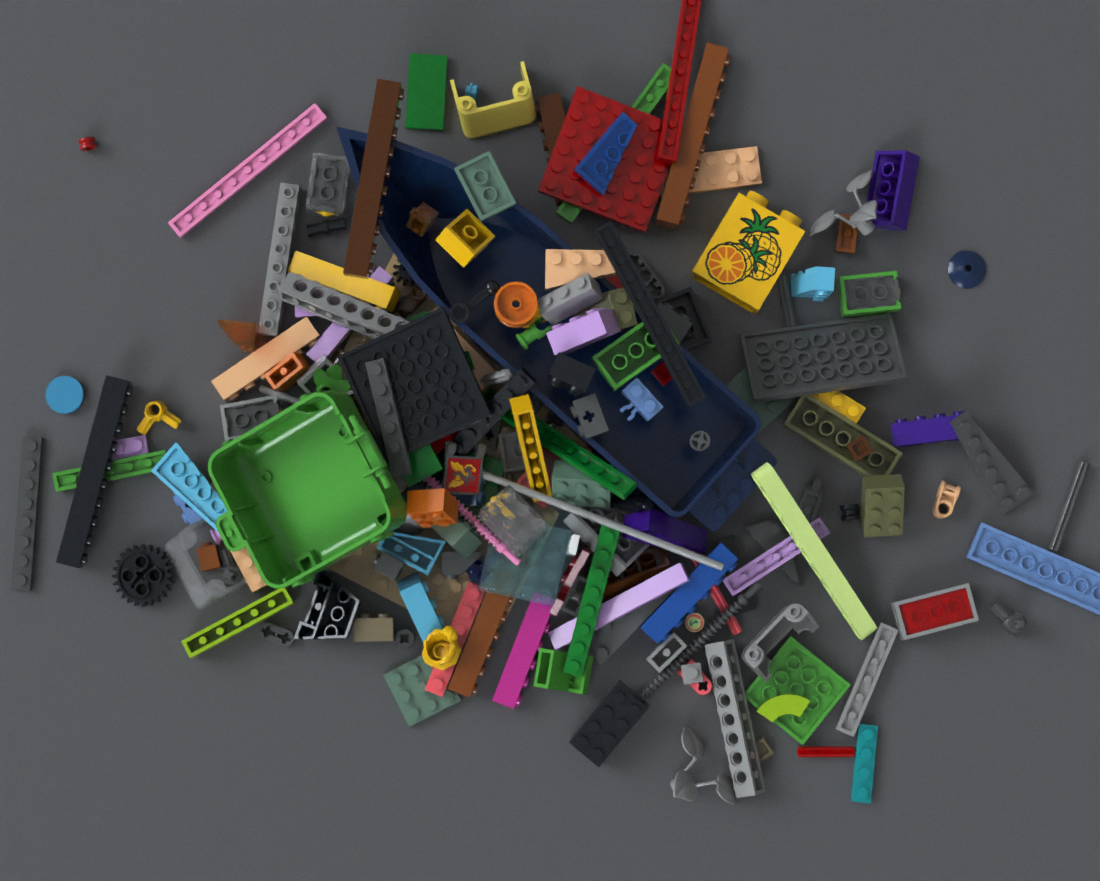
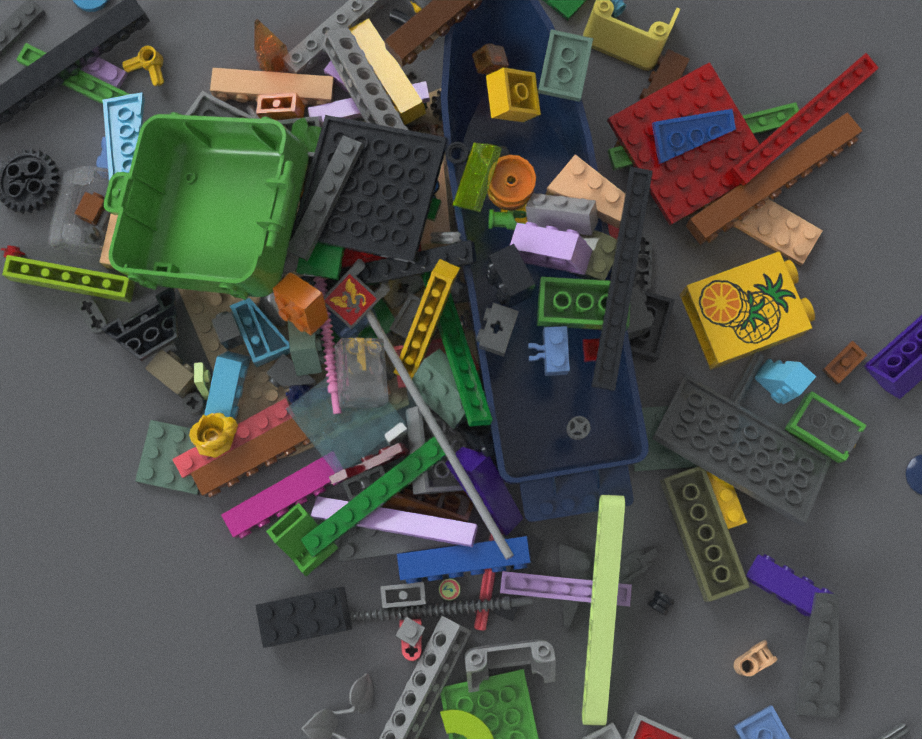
camera: 35 degrees right, 5 degrees down
(178, 636) = (12, 251): none -> red plate
(401, 616) = (202, 379): none -> yellowish green plate
(489, 320) = (477, 176): none -> clear neon green tile
(859, 448) = (714, 552): reddish brown tile -> none
(860, 218) = (867, 358): light grey plant -> none
(882, 505) = (695, 619): olive brick -> none

